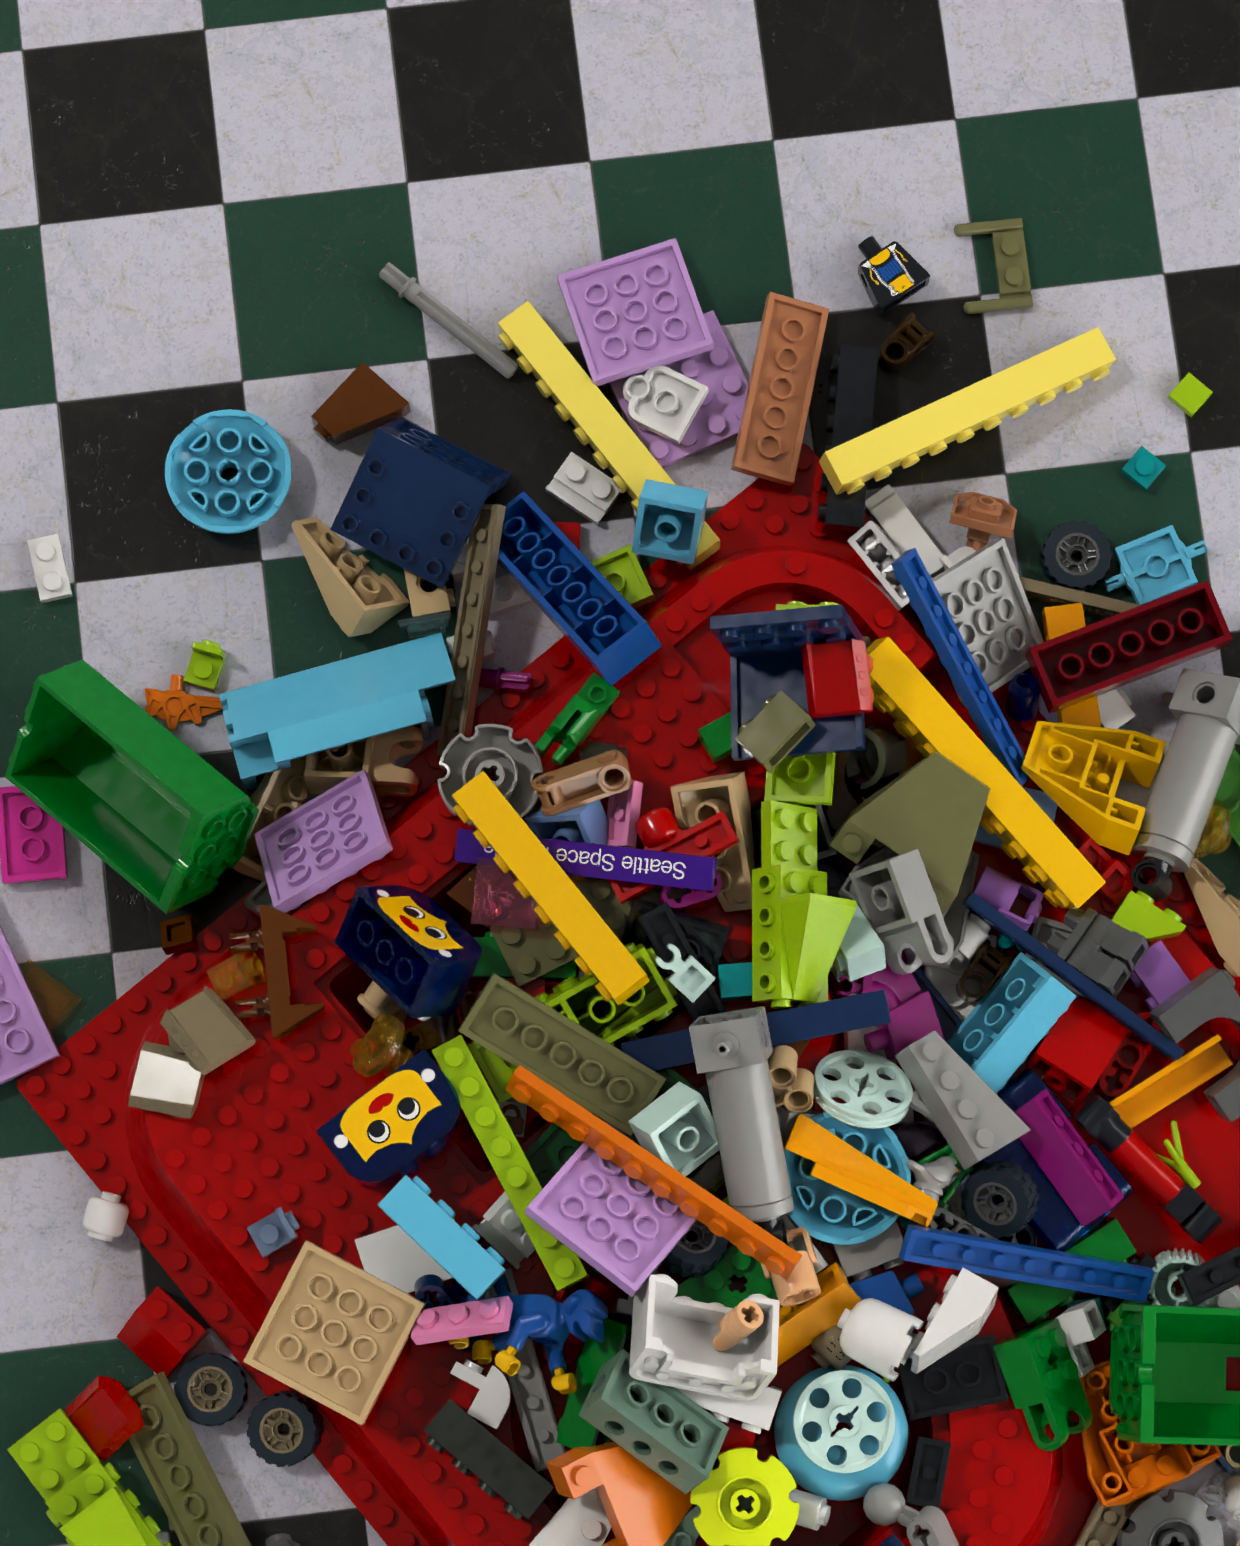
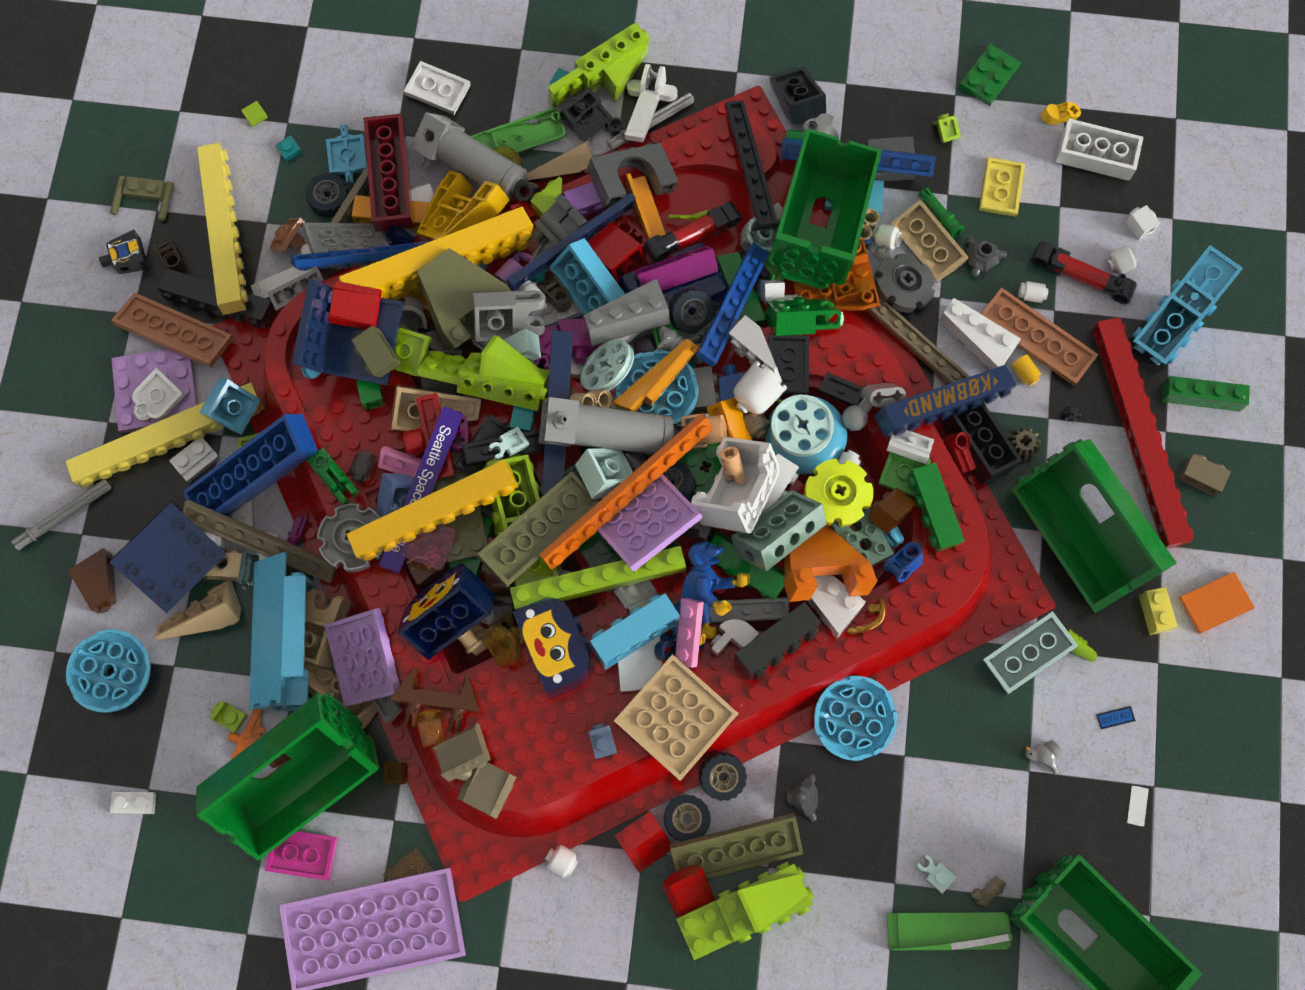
camera: 75 degrees left, 5 degrees down
(582, 782) = (373, 479): medium nougat piece -> none
(635, 312) = (95, 401): lavender plate -> none

